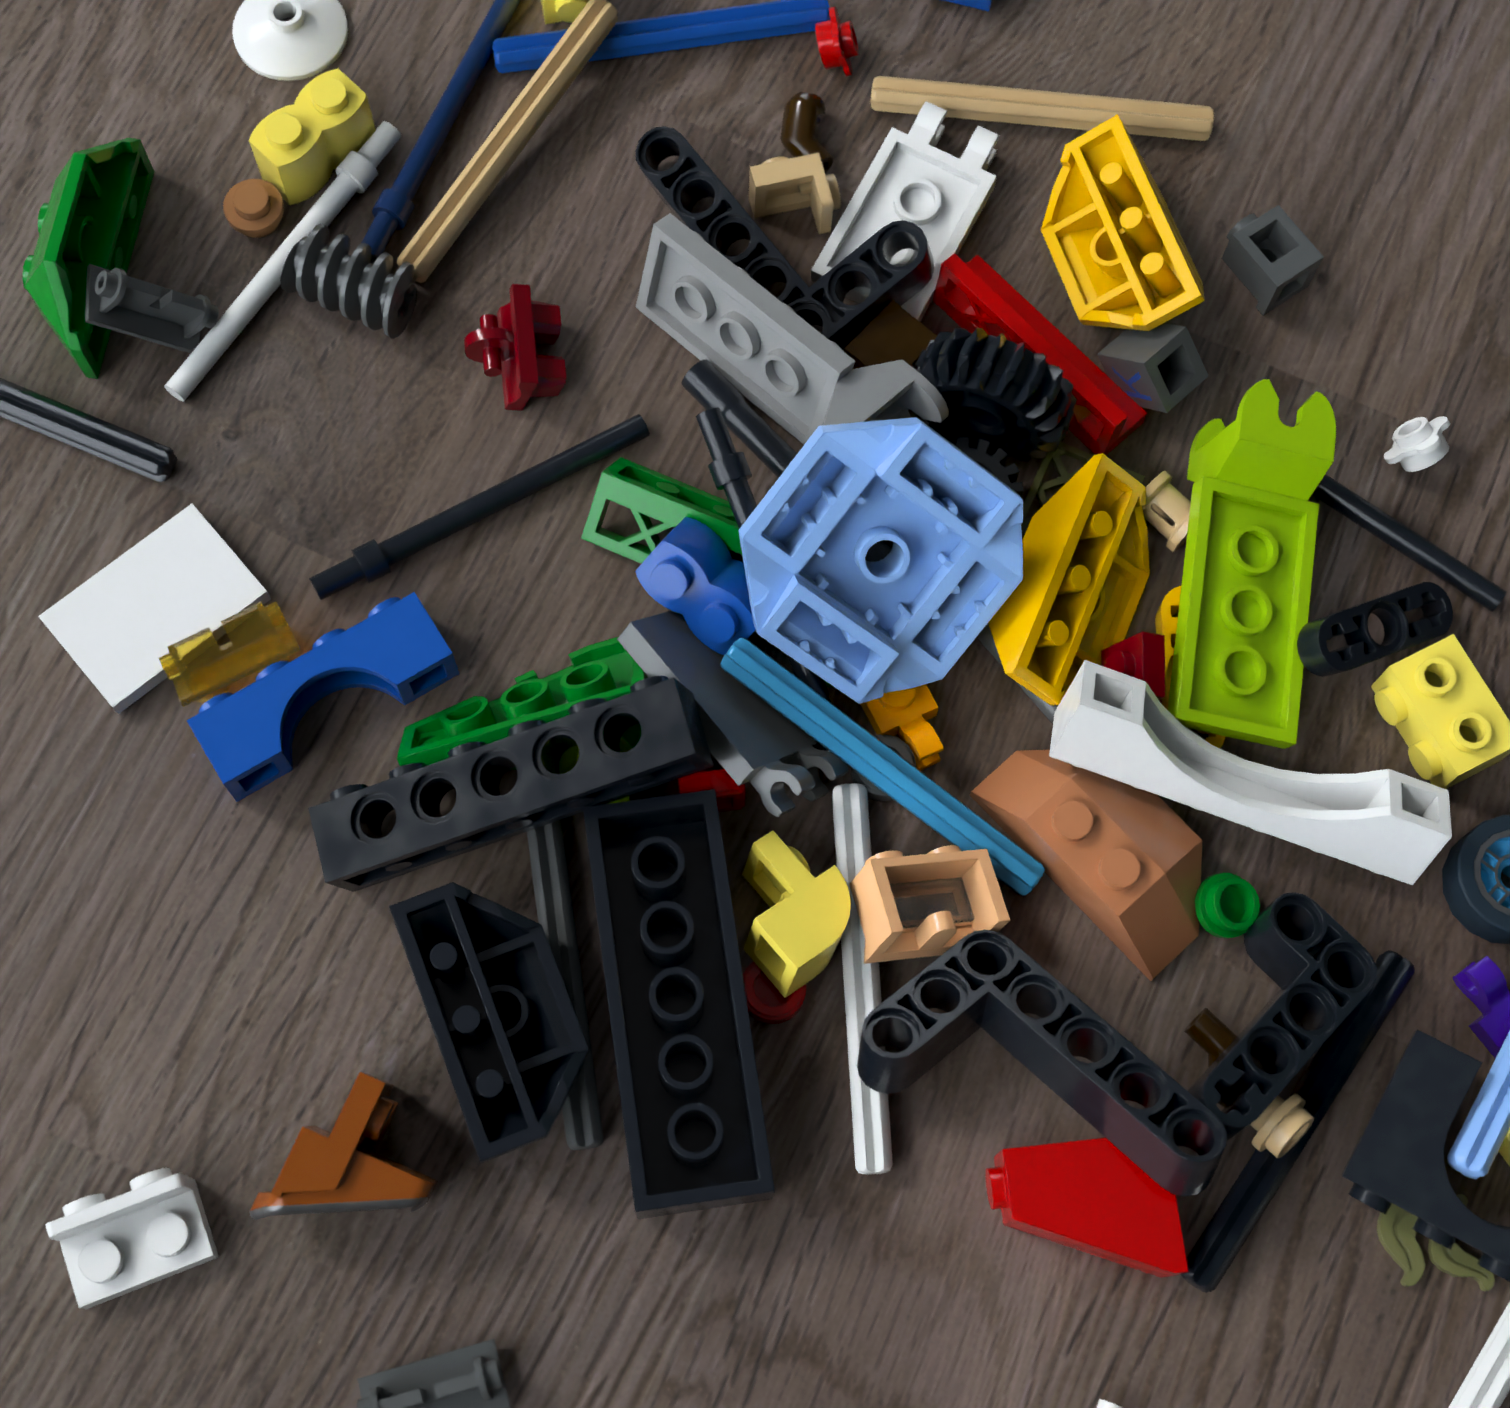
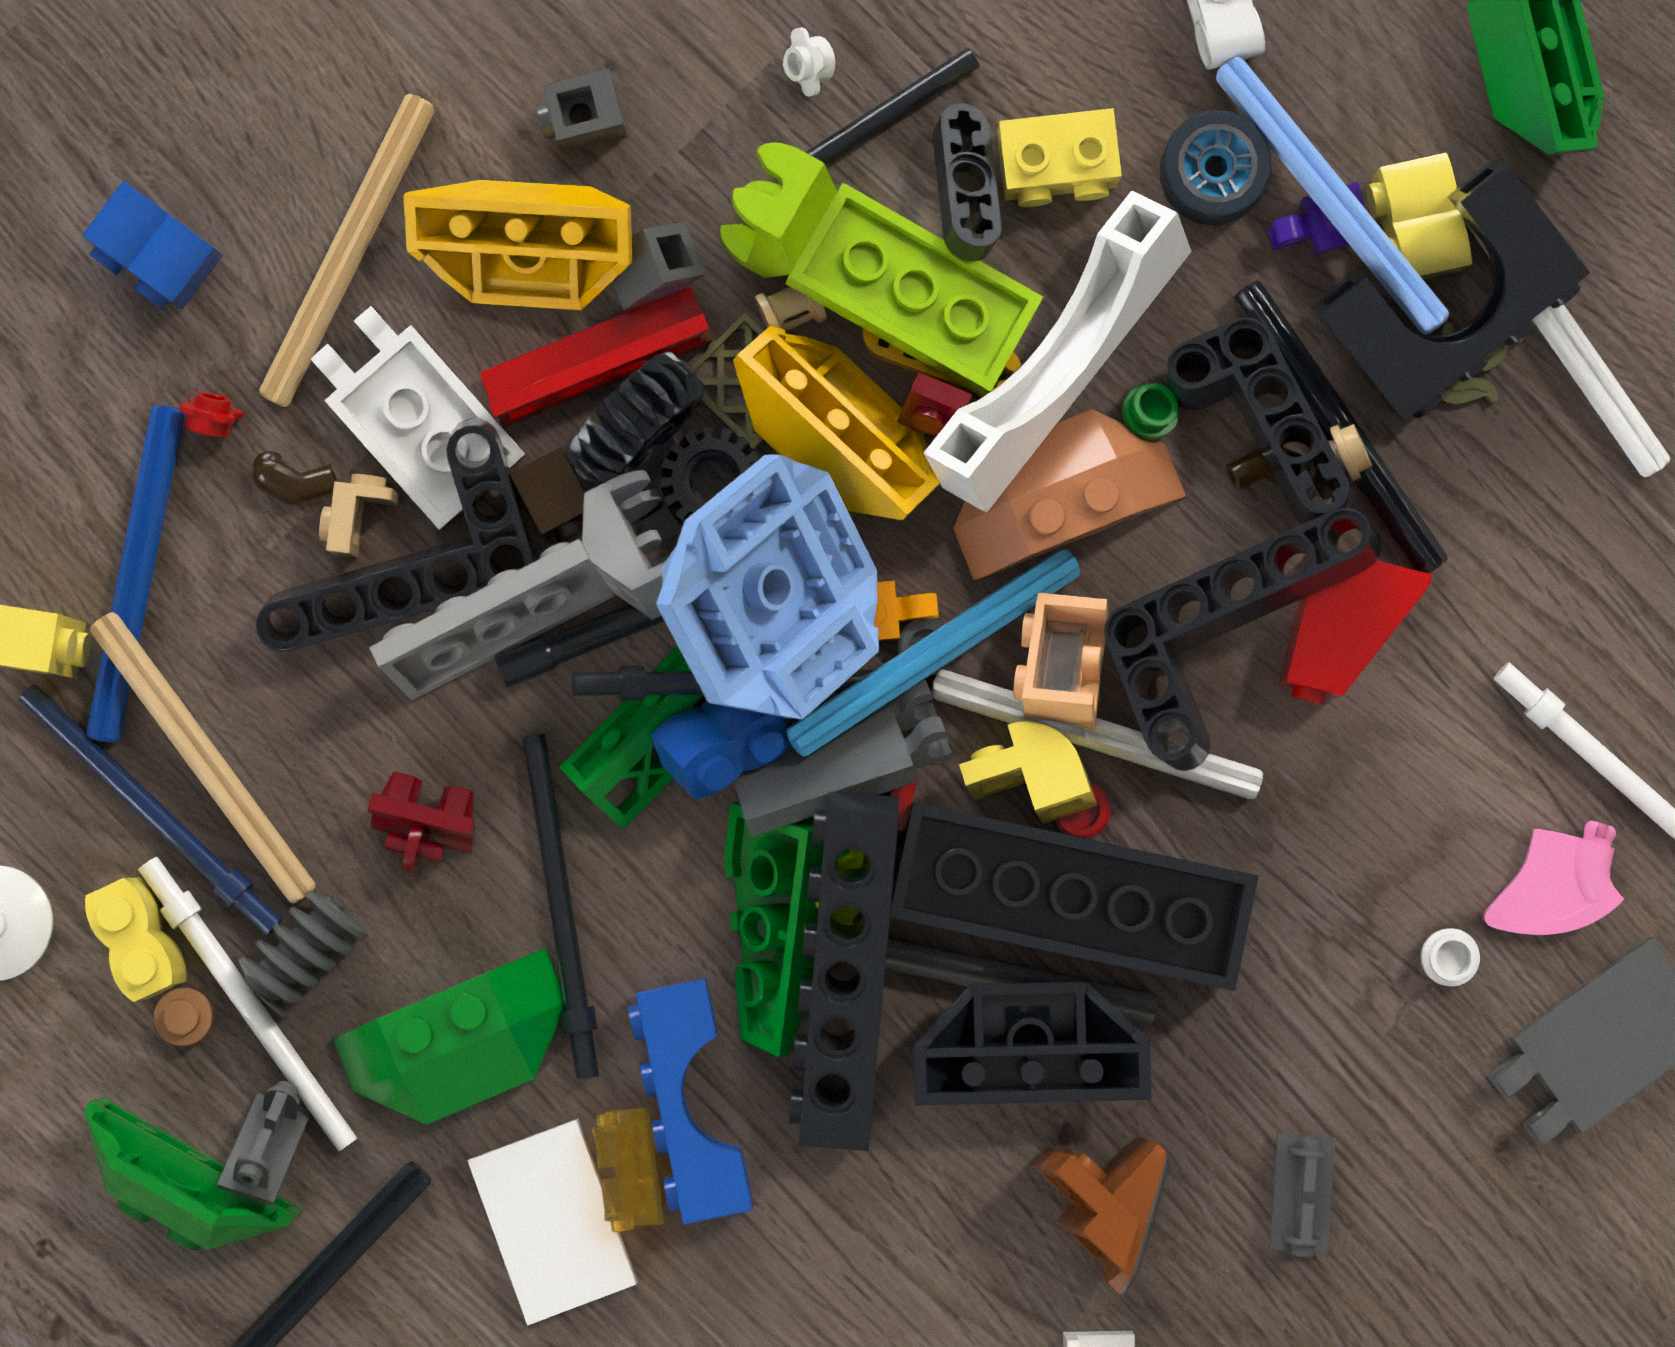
camera: 65 degrees left, 15 degrees up
(315, 455) = (458, 1042): none -> green wedge

